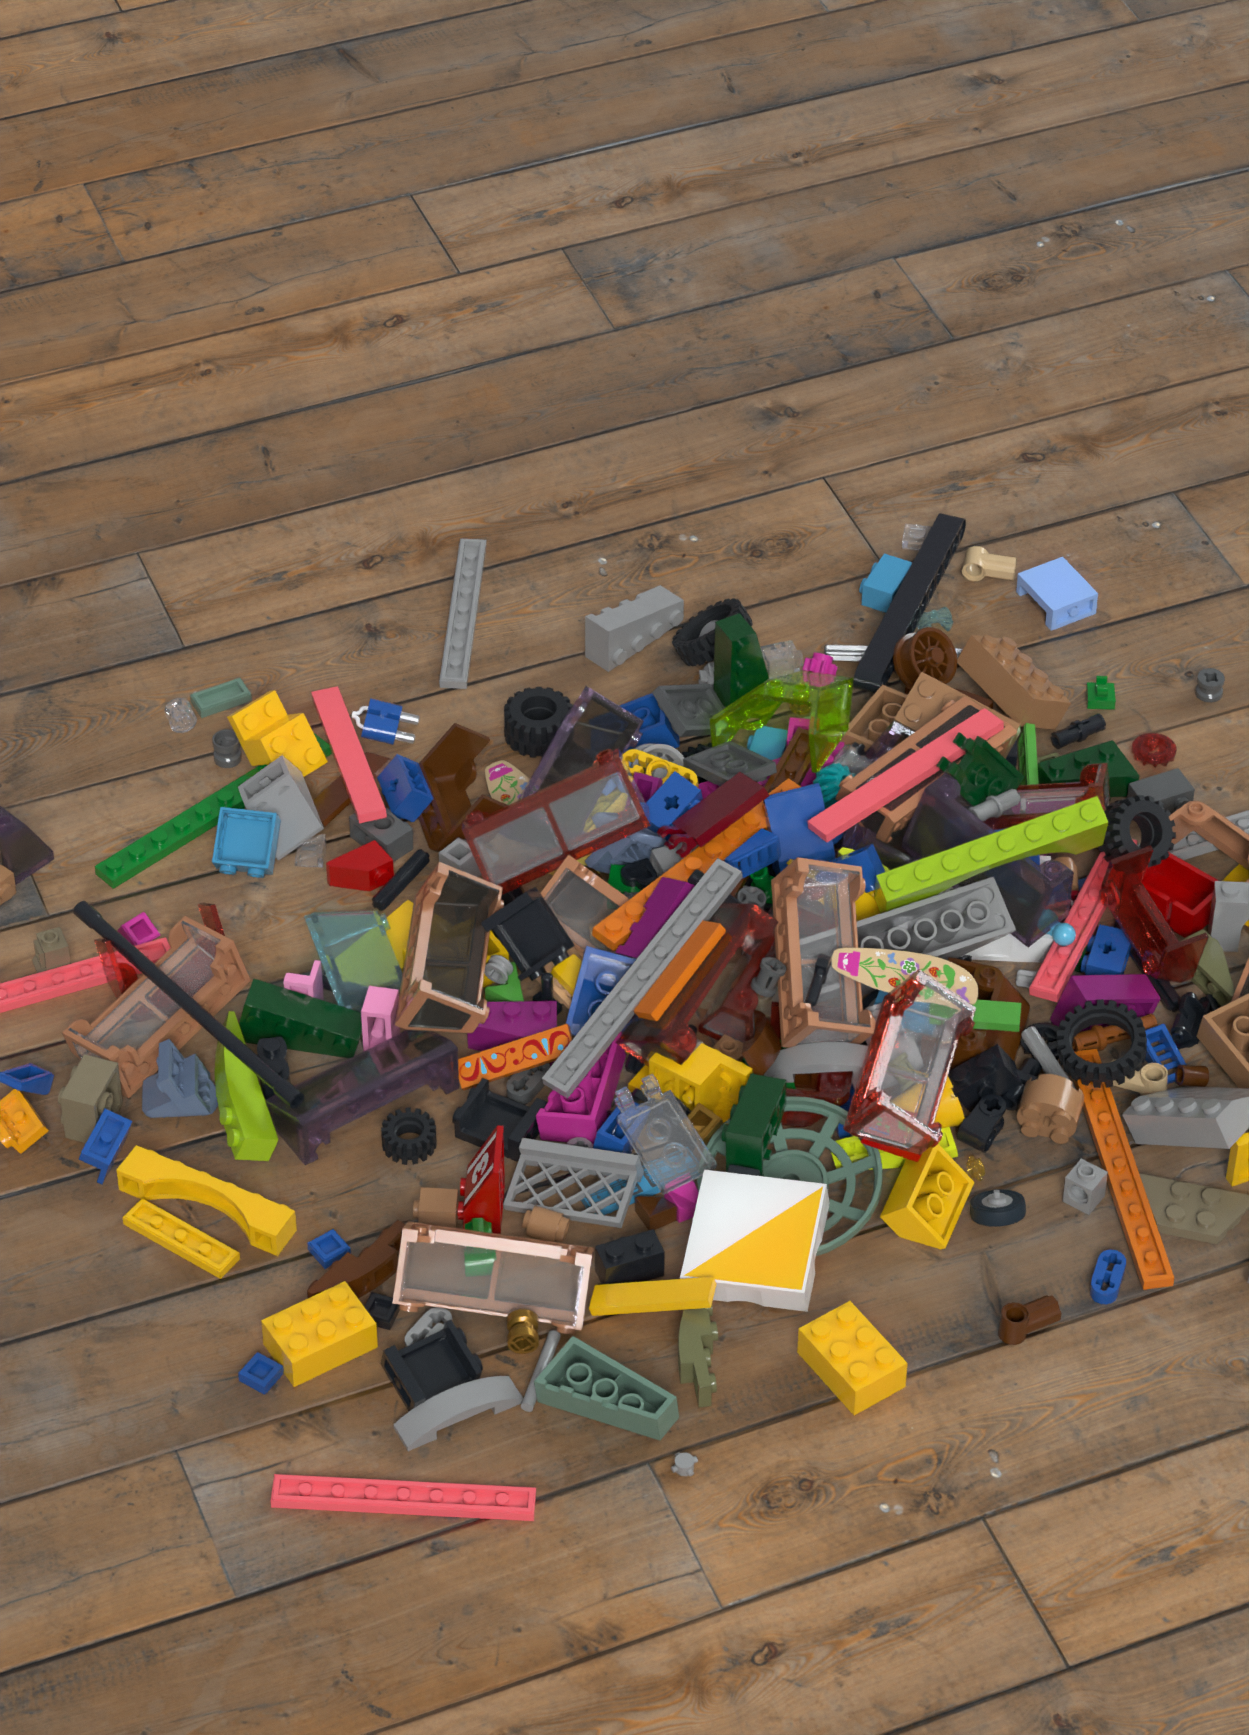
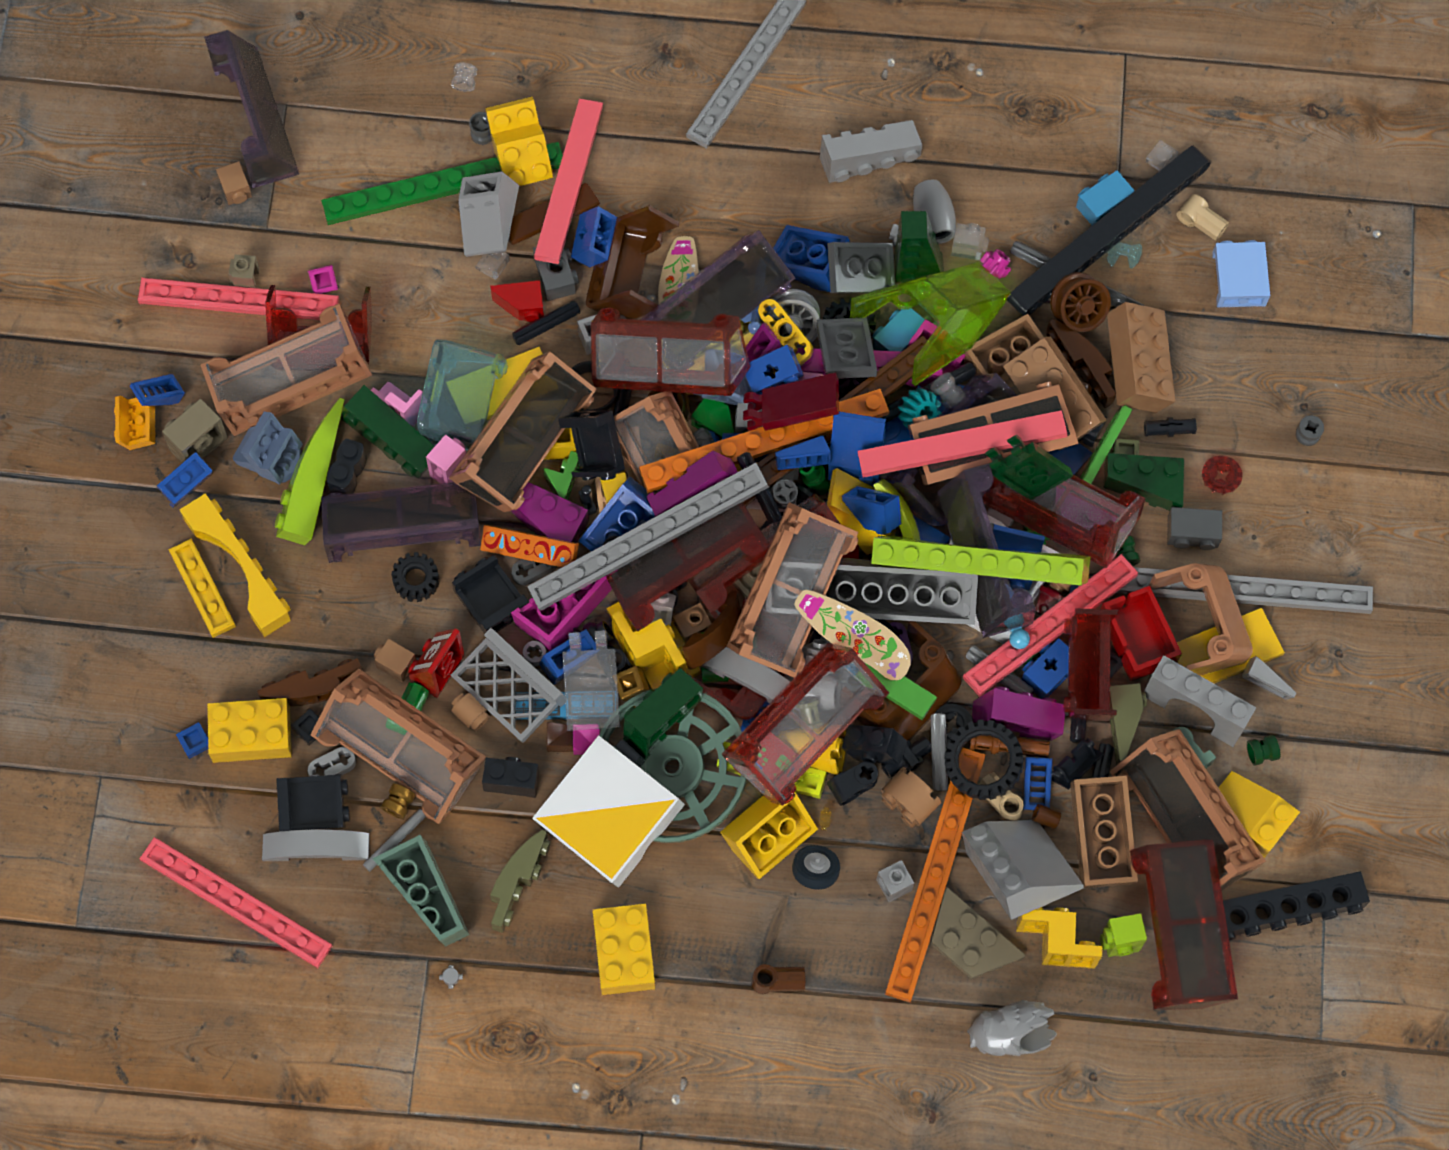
camera: 25 degrees right, 25 degrees up
(220, 697) = (508, 70): sand green tile -> none
(246, 842) = (441, 235): dark azure piece -> none
(280, 1086) = (327, 501): black piece -> none
(328, 1248) = (303, 651): blue tile -> none
(383, 721) = (617, 157): blue piece -> none
(498, 969) = (558, 459): light grey bush -> none
(533, 719) = (732, 199): black tyre -> none
(638, 874) = (722, 416): black tile -> none
(652, 1296) = (506, 821): yellow tile -> none
(679, 970) = (674, 549): orange tile -> none
(698, 649) = (933, 203): black tyre -> none
(768, 976) = (744, 588): dark grey bush -> none
(820, 975) = (781, 605): black bar -> none
(996, 805) = (1029, 495): light grey axle -> none
(1100, 694) = (1213, 396): green tile -> none
(1112, 1277) = (860, 965): blue beam -> none
(1152, 821) = (1118, 562): black tyre -> none

